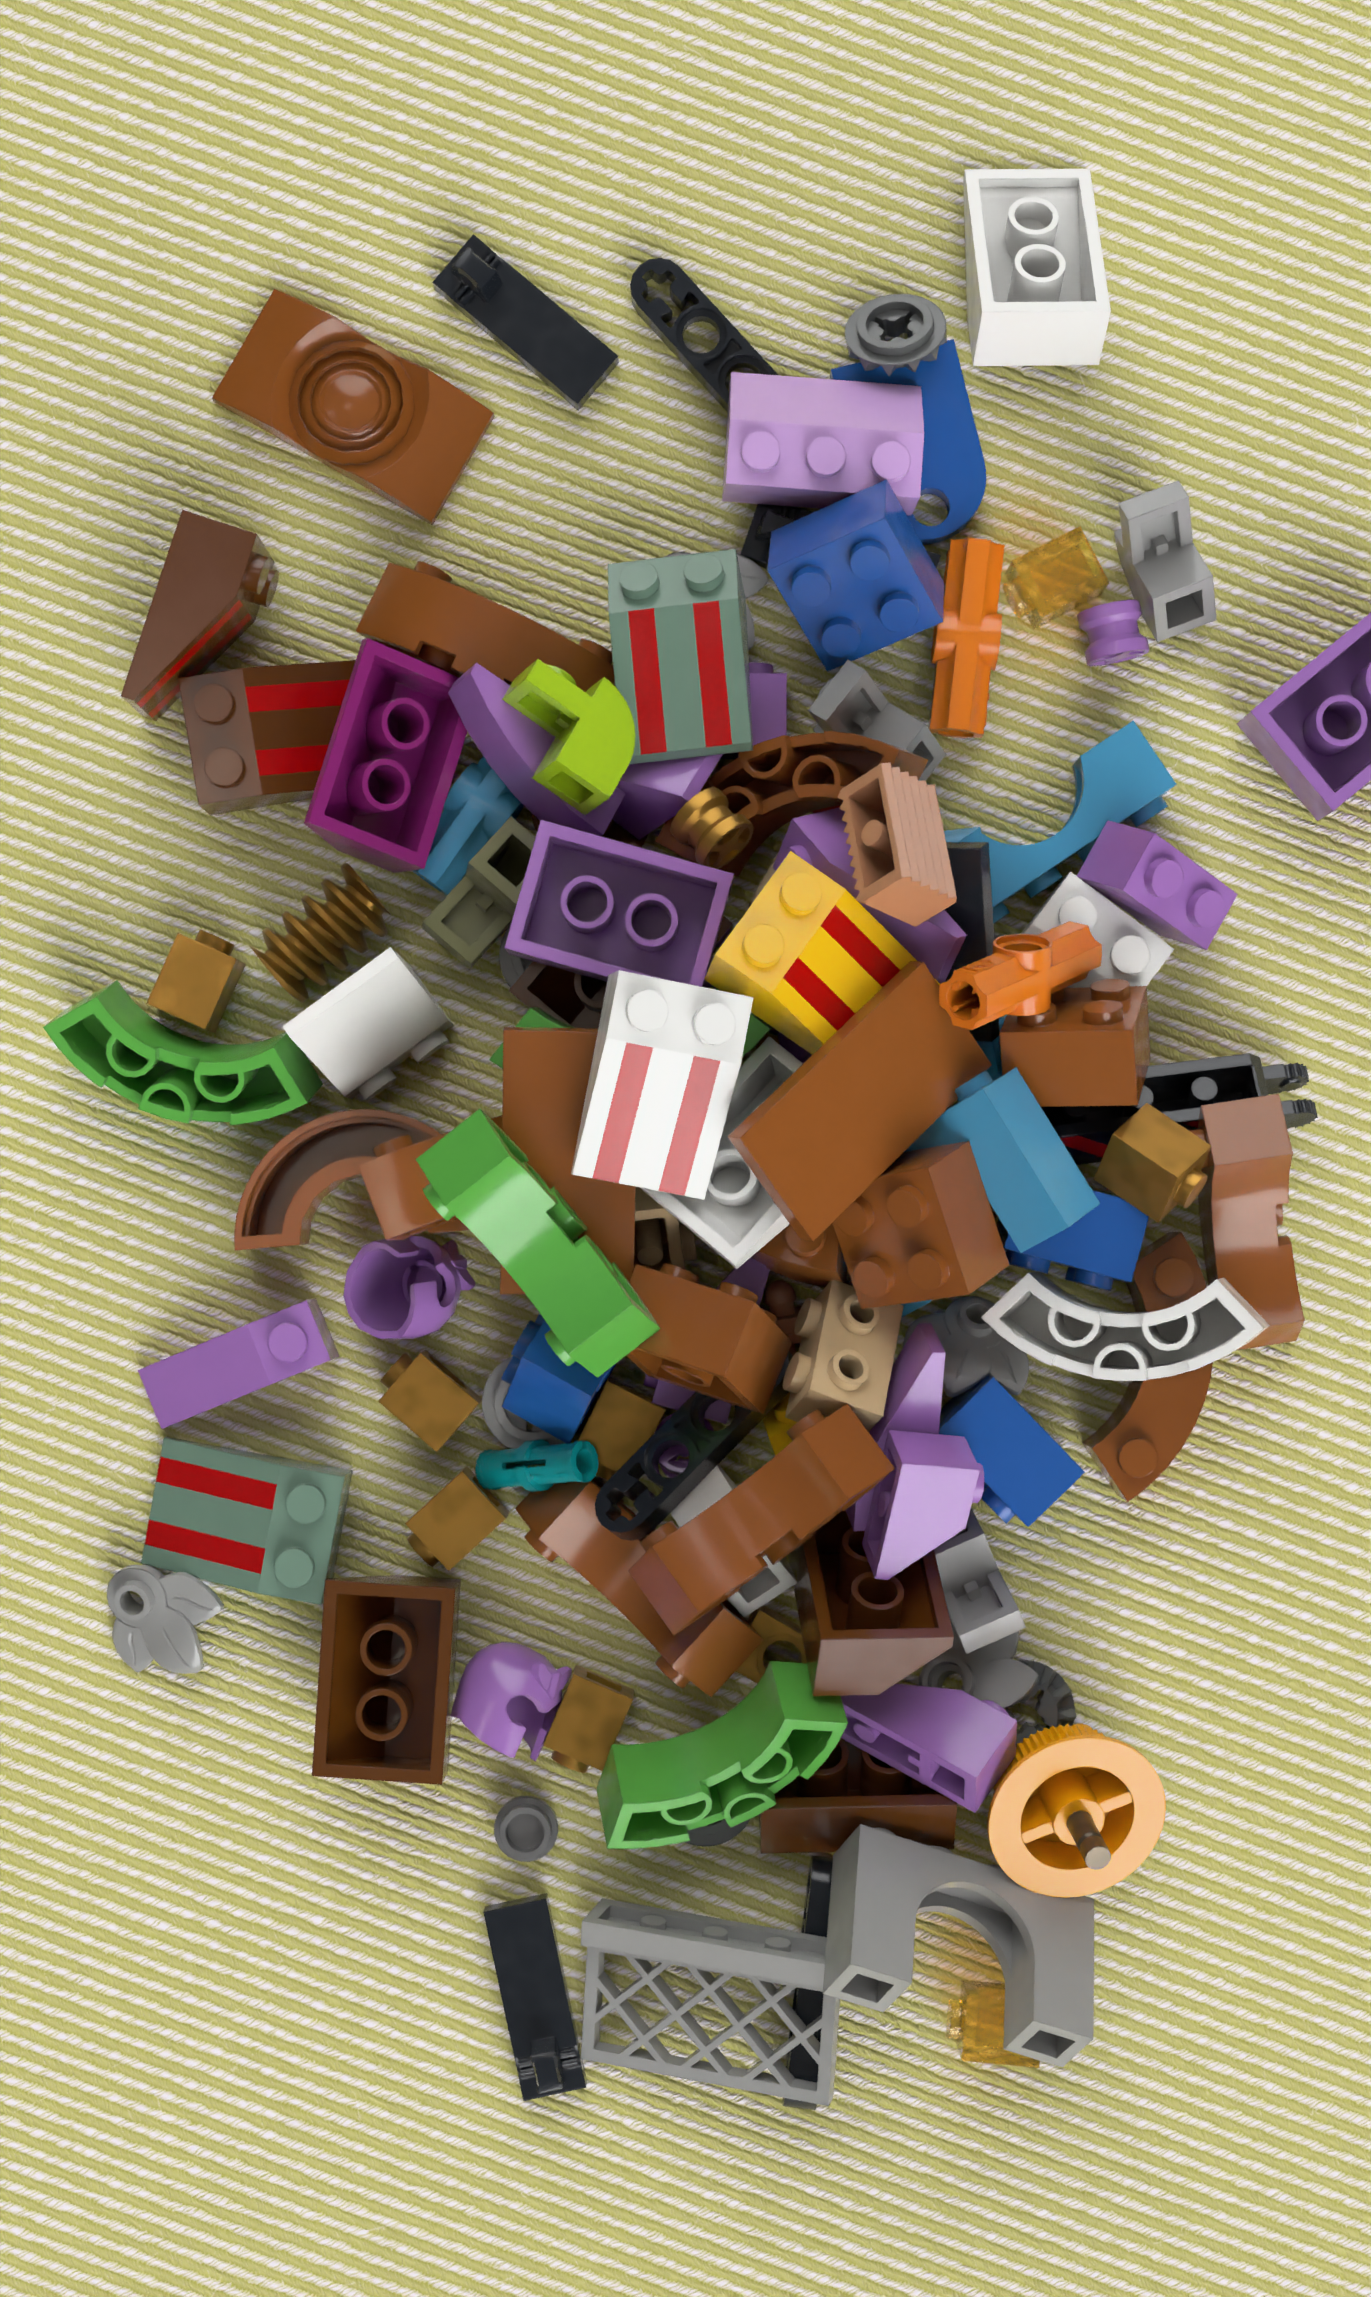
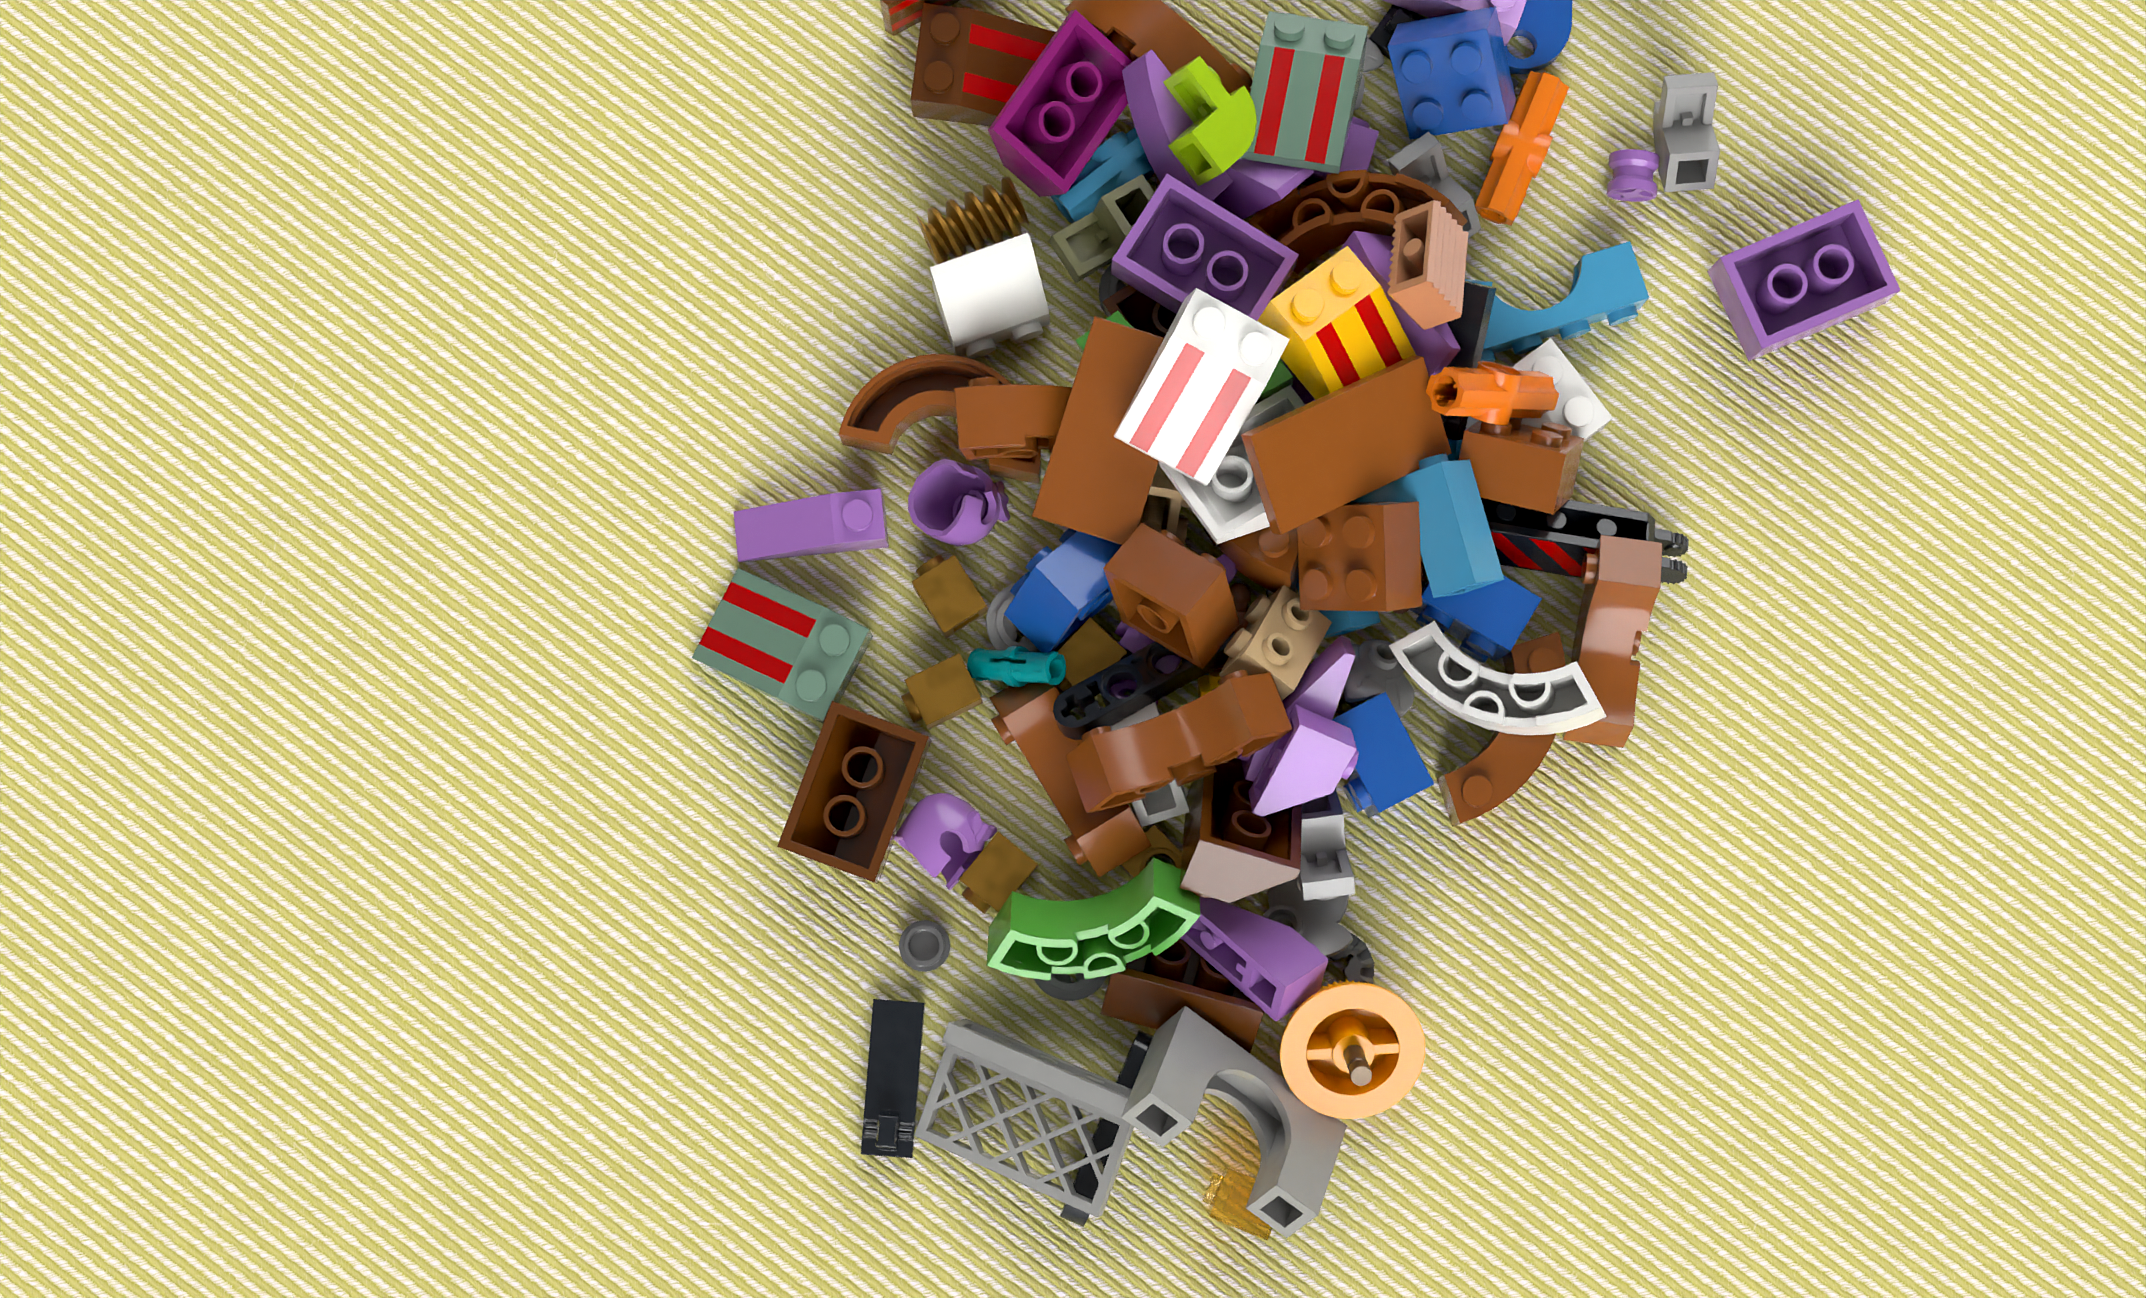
camera: 15 degrees right, 5 degrees down
(165, 1624) = (697, 706): light grey plate -> none
(176, 1074) = (832, 297): bright green brick -> none
(197, 980) = (868, 232): pearl gold brick -> none
(536, 1238) = (1074, 479): bright green brick -> none
(711, 828) = (1290, 220): pearl gold wheel -> none
(1054, 579) = (1600, 123): clear yellow brick -> none
(1154, 1163) = (1552, 566): pearl gold brick -> none
(1157, 884) = (1614, 367): medium lavender brick -> none

